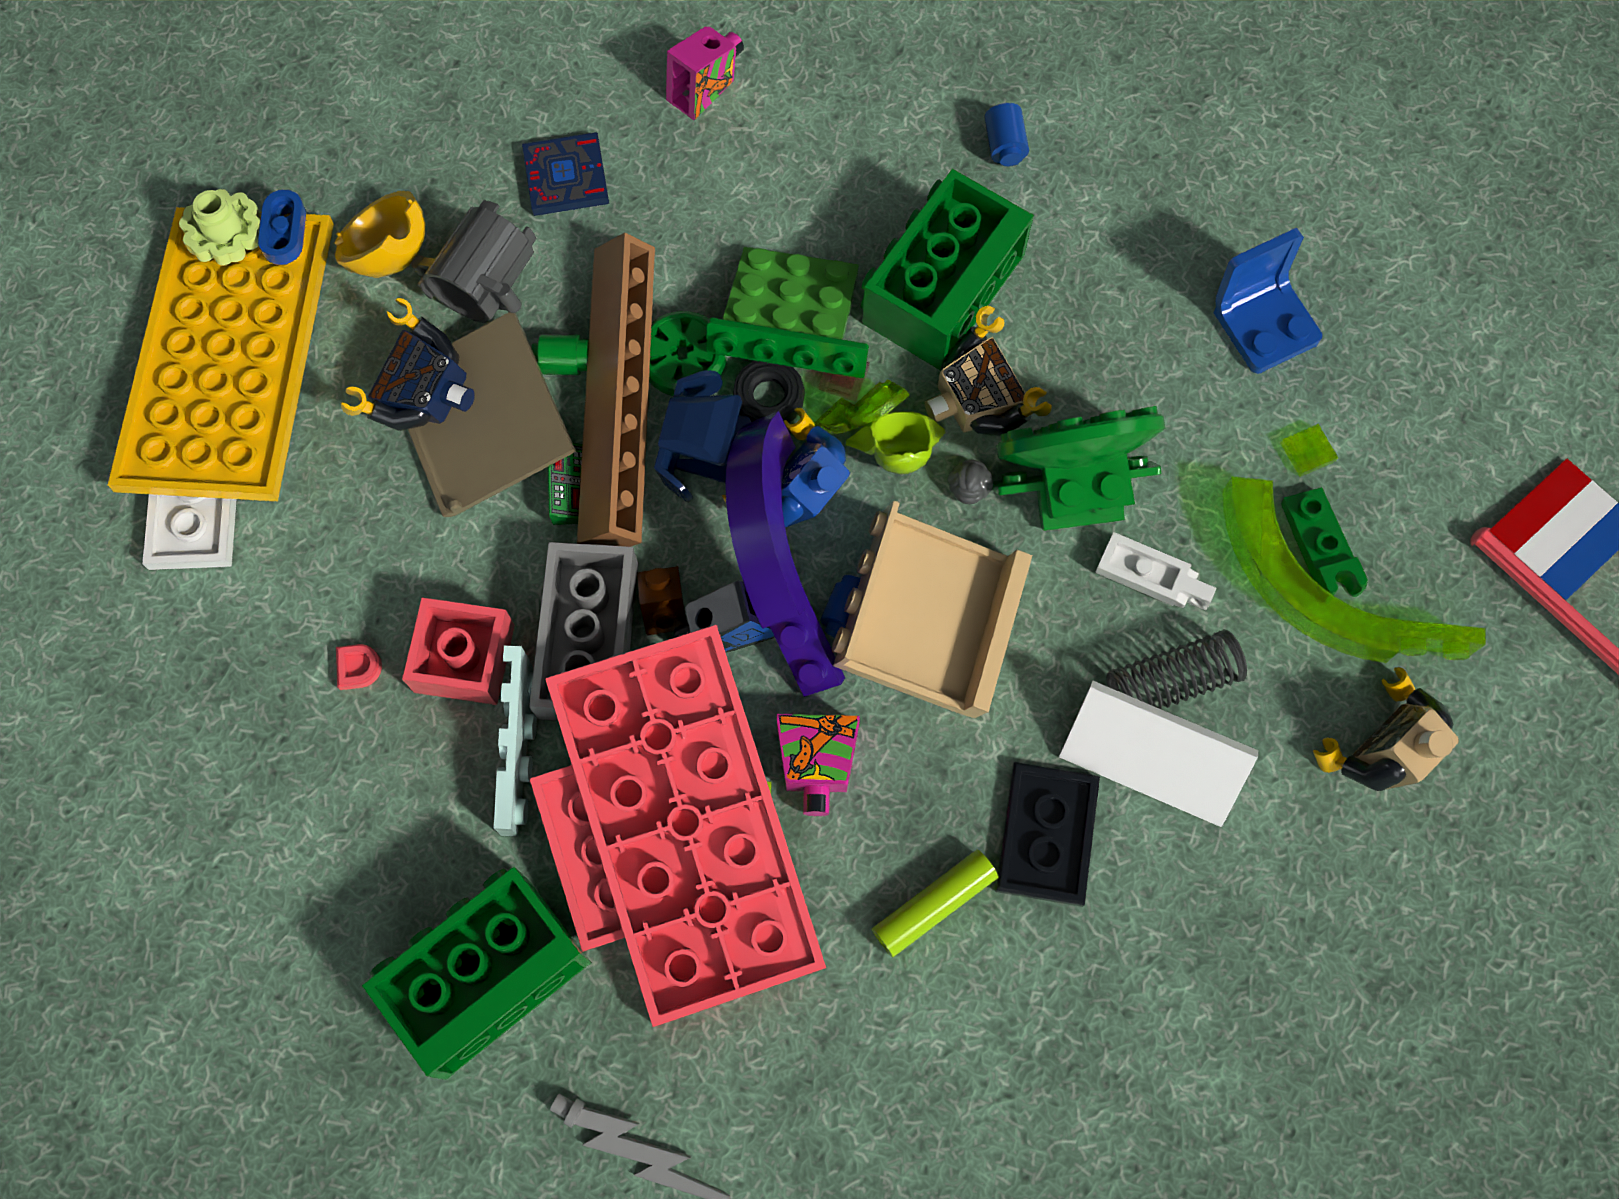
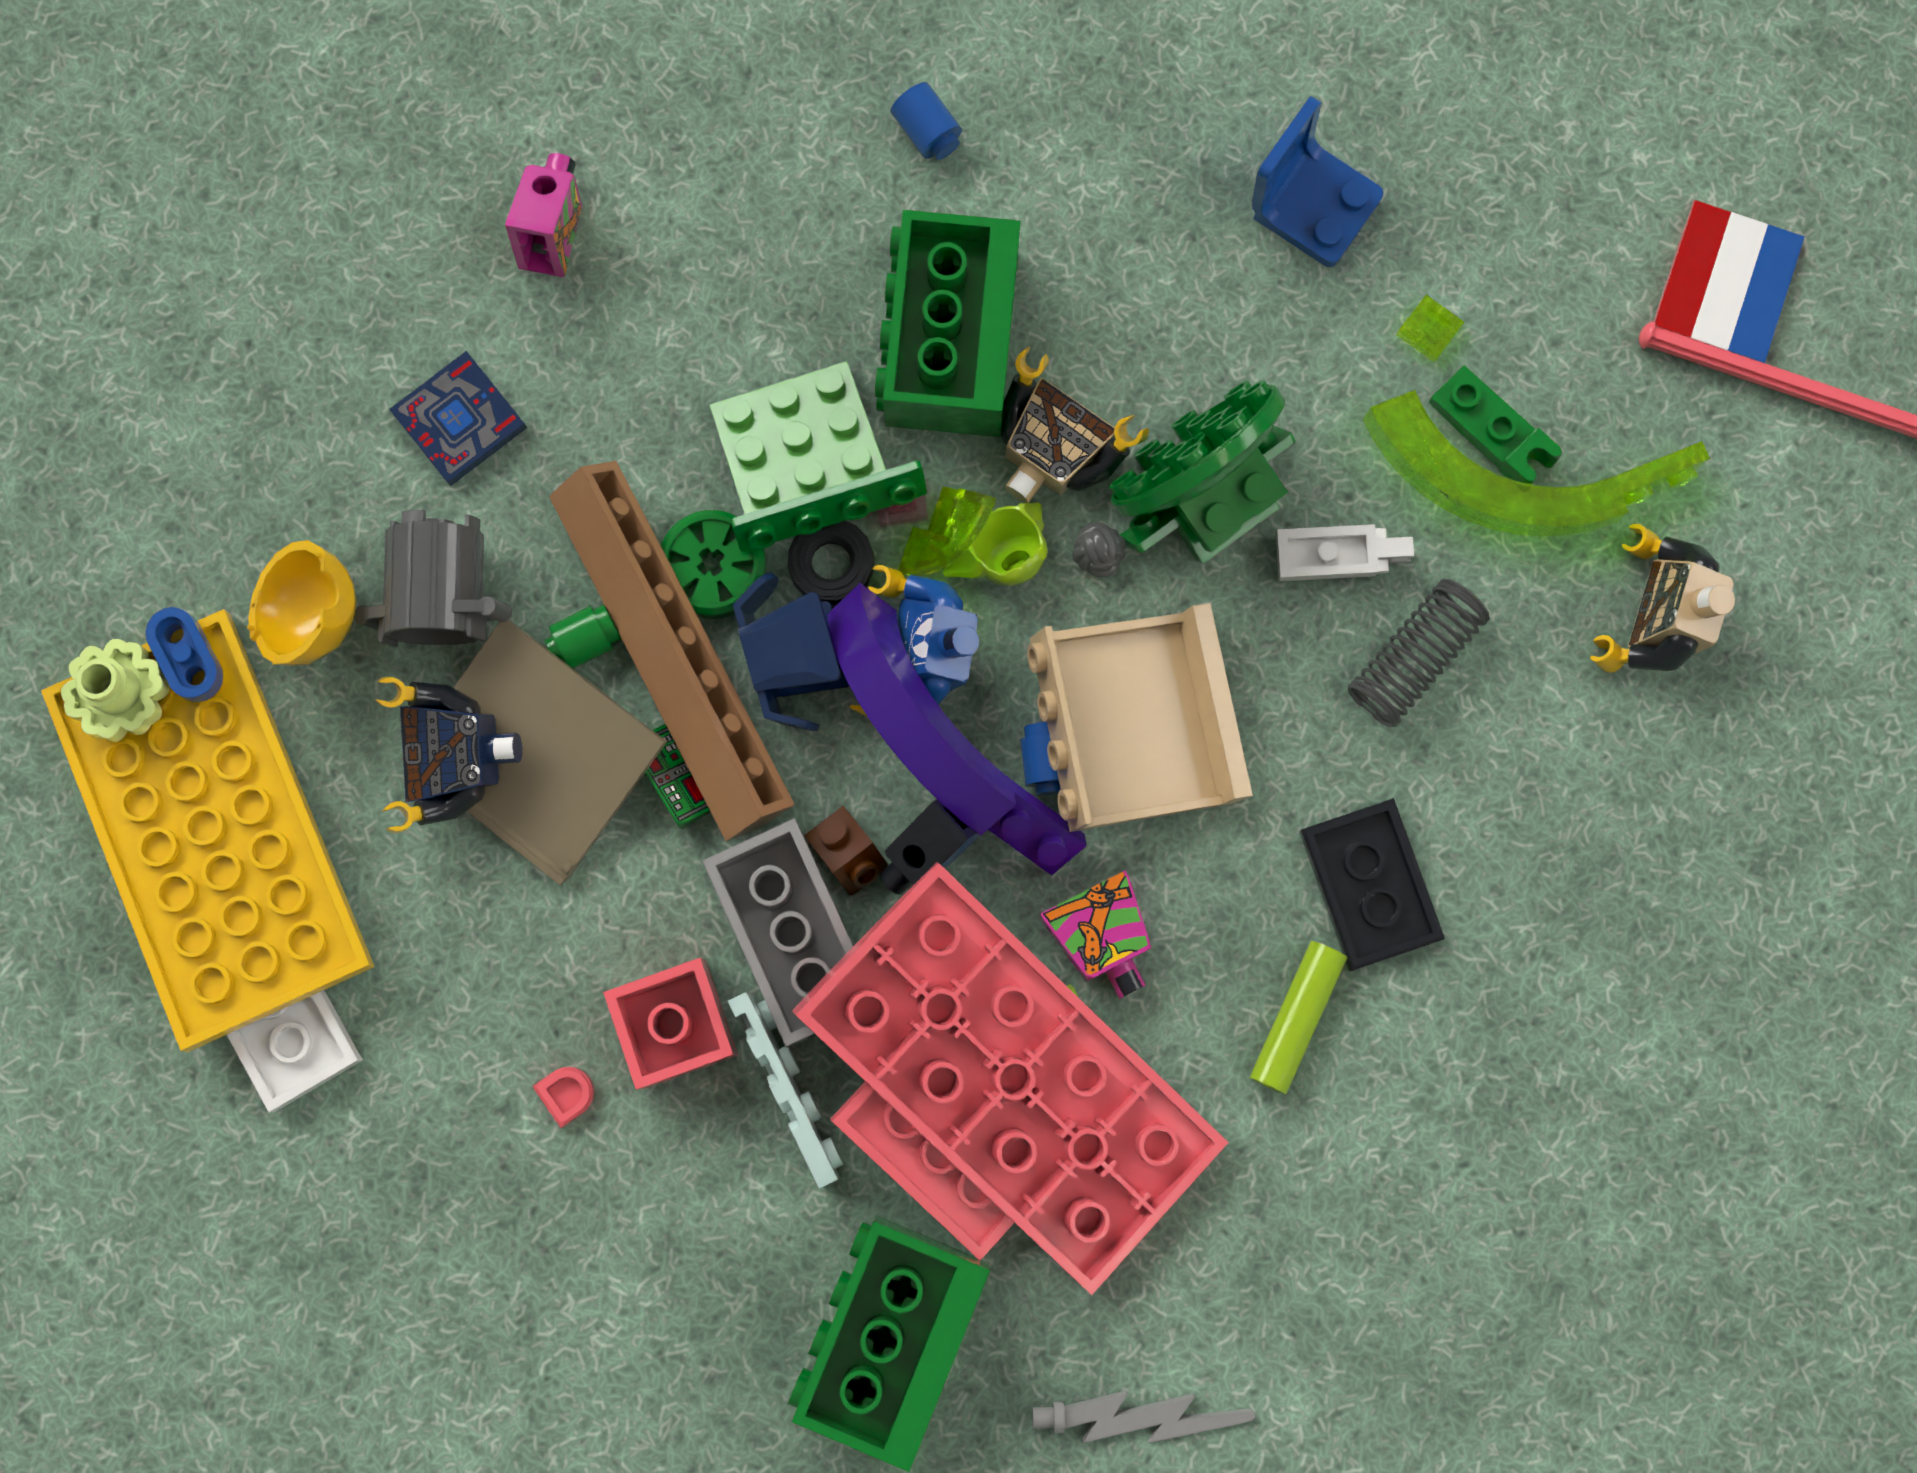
camera: 30 degrees left, 10 degrees up
(1158, 754) = (1442, 747): white tile -> none

